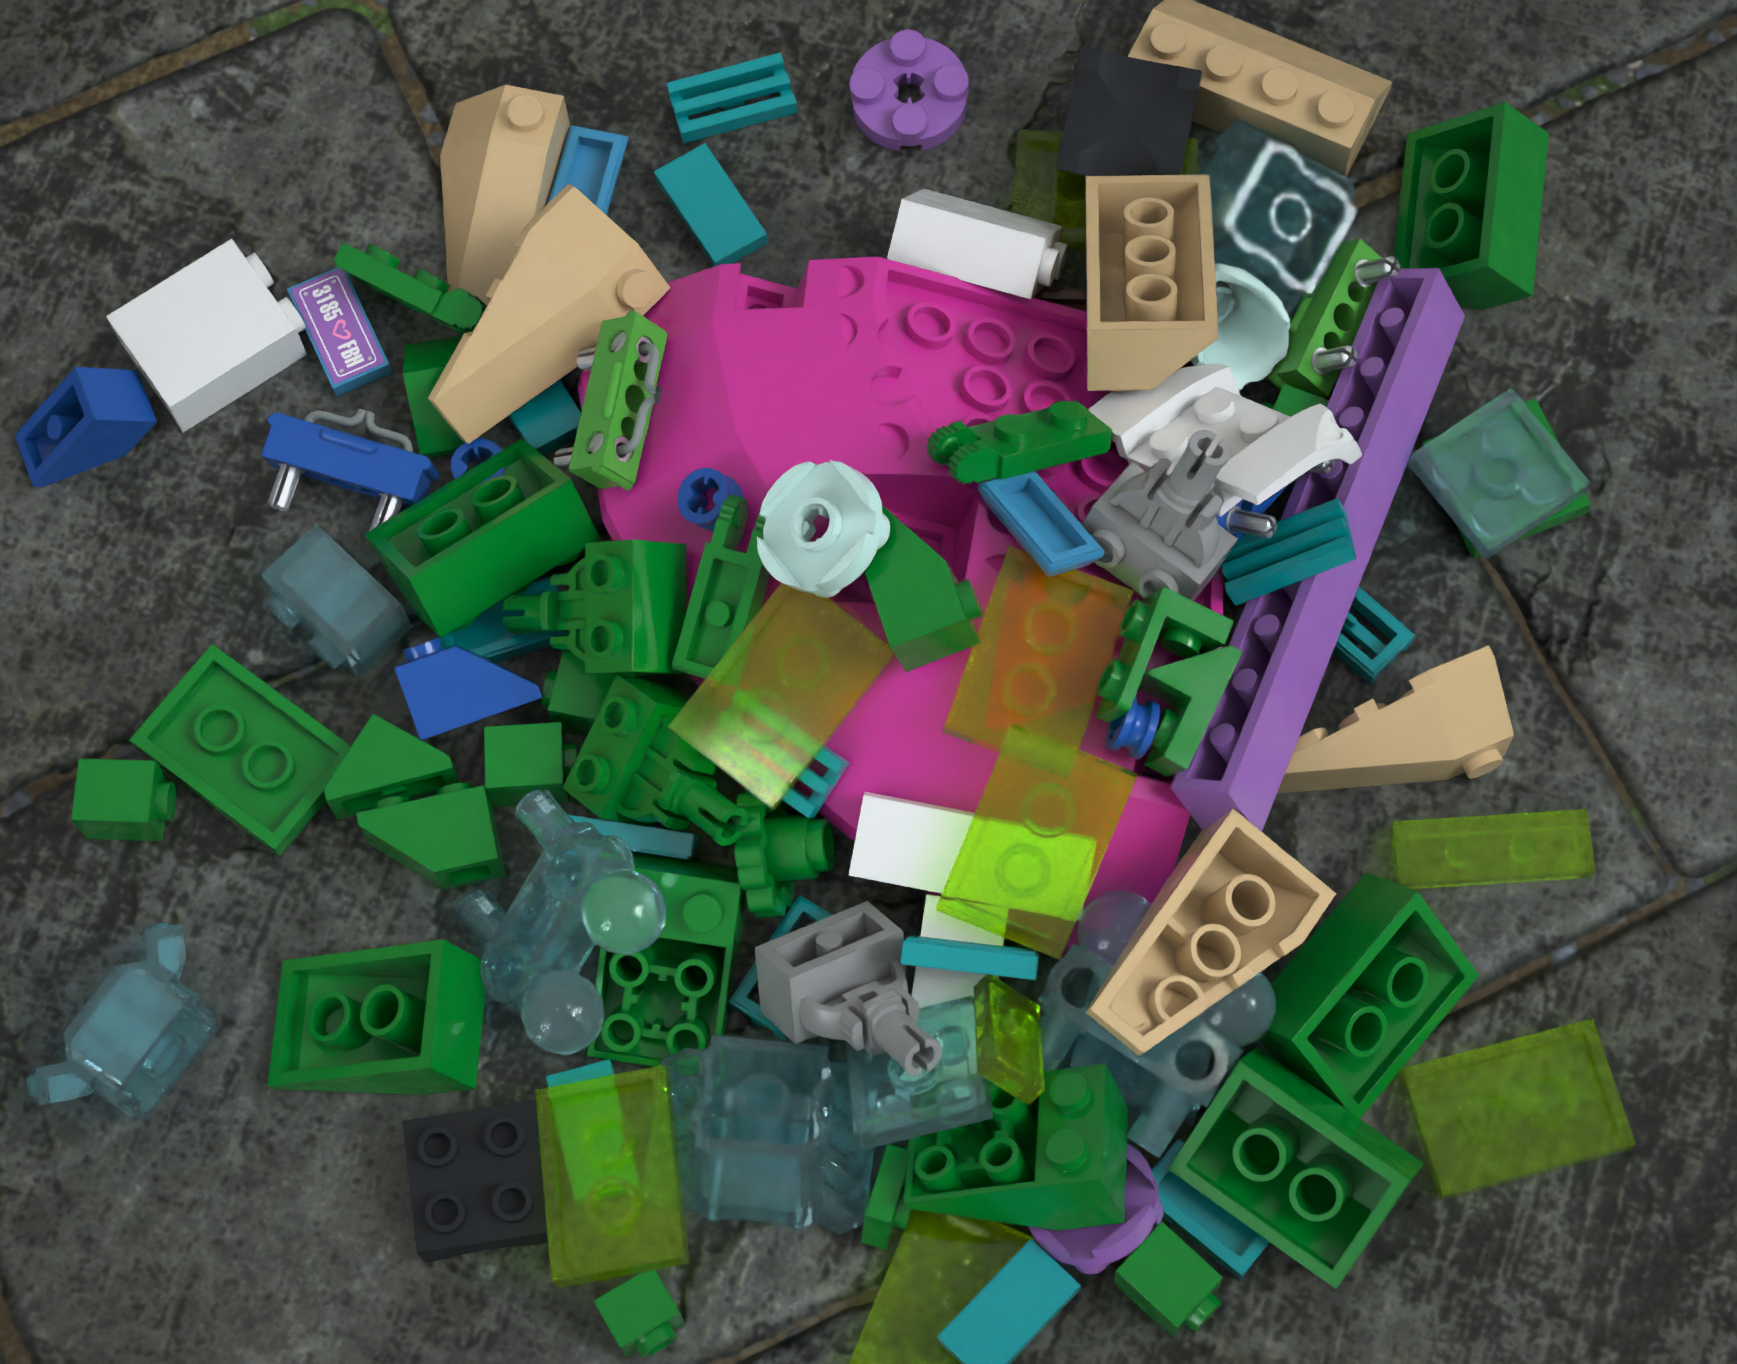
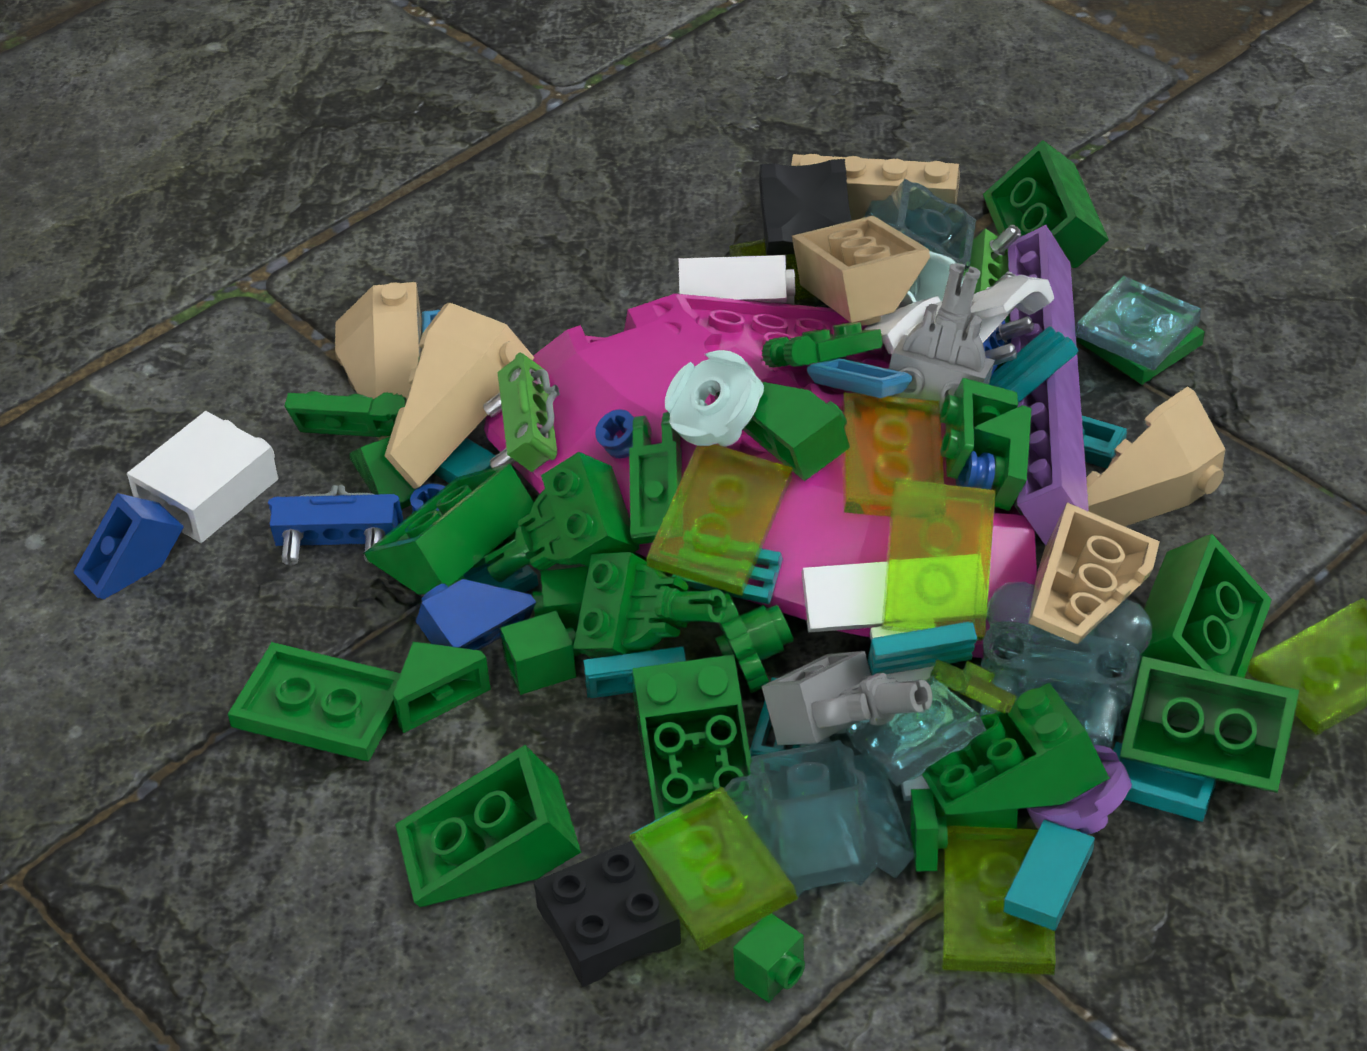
camera: 20 degrees left, 25 degrees down
(122, 799) = (235, 752): green brick -> none
(131, 1033) = (294, 886): clear light blue slope -> none
(335, 602) = (356, 597): clear light blue brick -> none
(339, 331) = (302, 457): medium lavender tile -> none
(439, 837) = (488, 711): green slope -> none
(571, 901) = (606, 713): clear light blue piece -> none
(710, 207) = (532, 325): teal tile -> none
(728, 89) = (527, 276): teal tile -> none
(903, 61) = (664, 240): medium lavender plate -> none
(1170, 1282) = (1155, 824): green brick -> none
(1492, 849) = (1249, 523): clear neon green tile -> none

